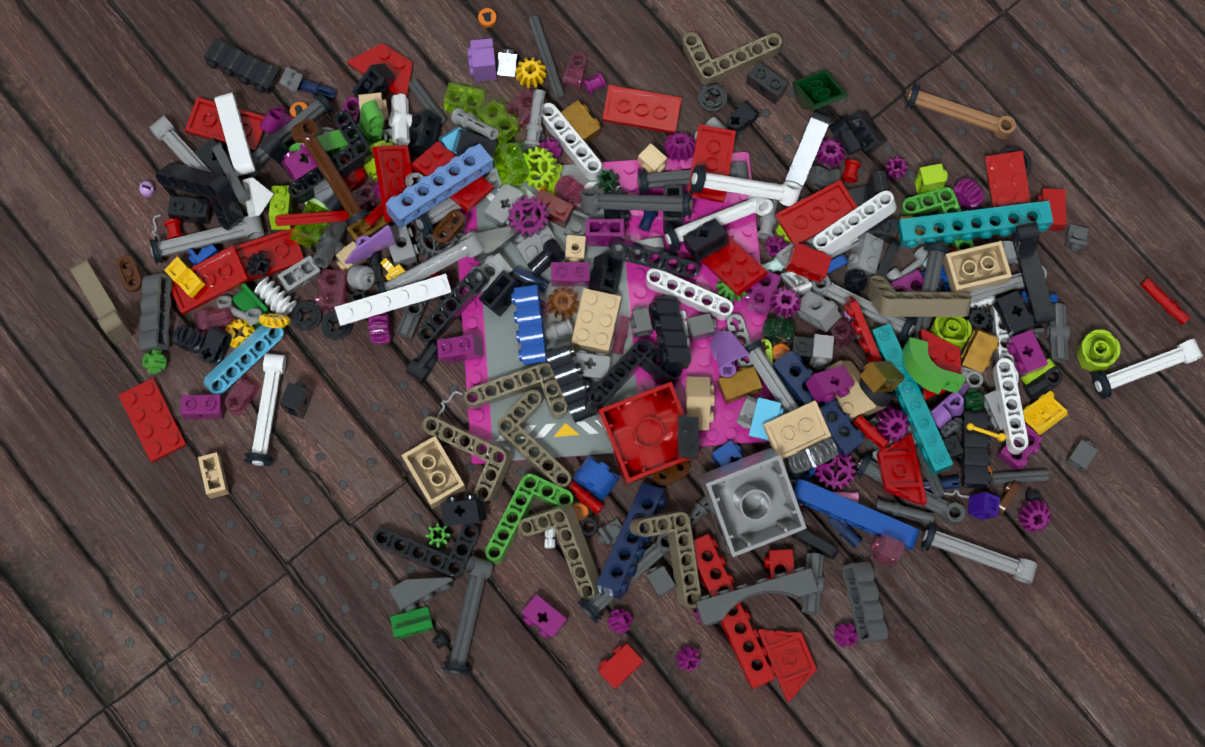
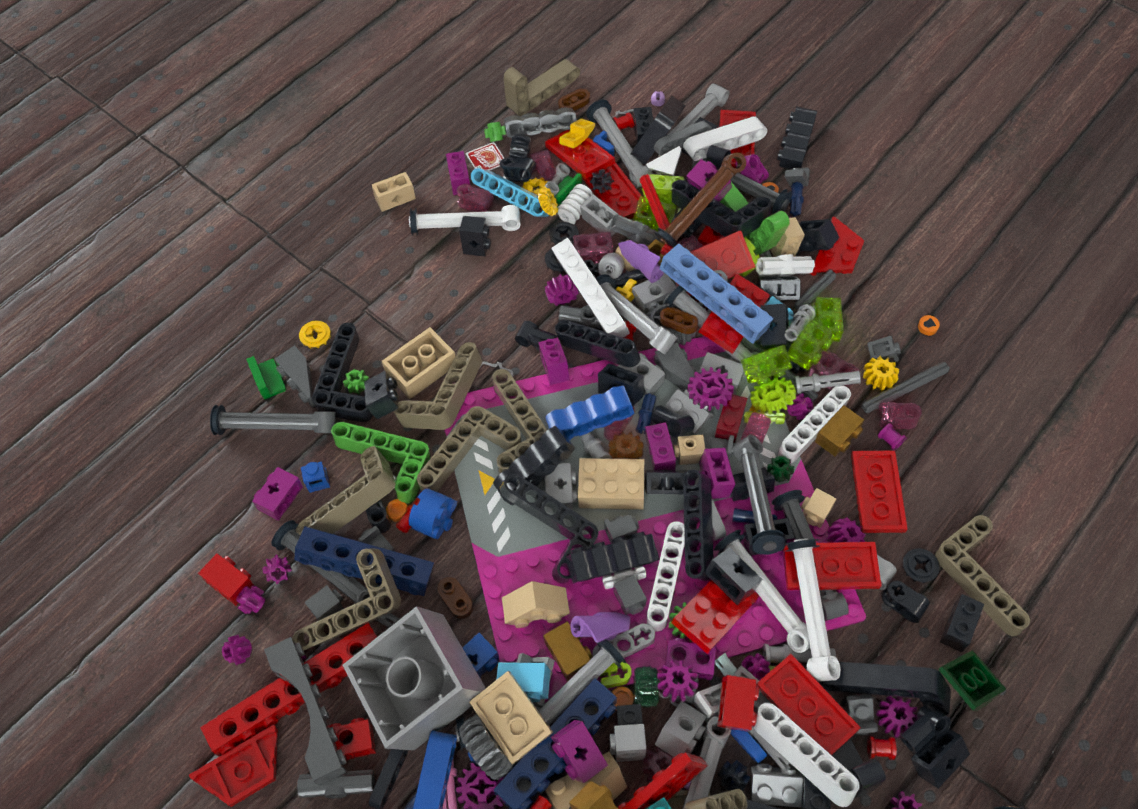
camera: 85 degrees right, 15 degrees down
(152, 420) = (432, 149): red plate -> none
(181, 378) = (485, 157): none -> sticker
(364, 568) = (307, 331): none -> yellow gear
(441, 640) = (251, 405): black piece -> none
(482, 60) = (877, 323): medium lavender brick -> none
(533, 581) = (312, 472): none -> blue brick
(620, 335) = (602, 512): clear pink axle -> none
(644, 432) = (484, 551): red piece -> none
(644, 645) = (250, 599): none -> magenta gear
(687, 438) = (477, 584): black brick -> none

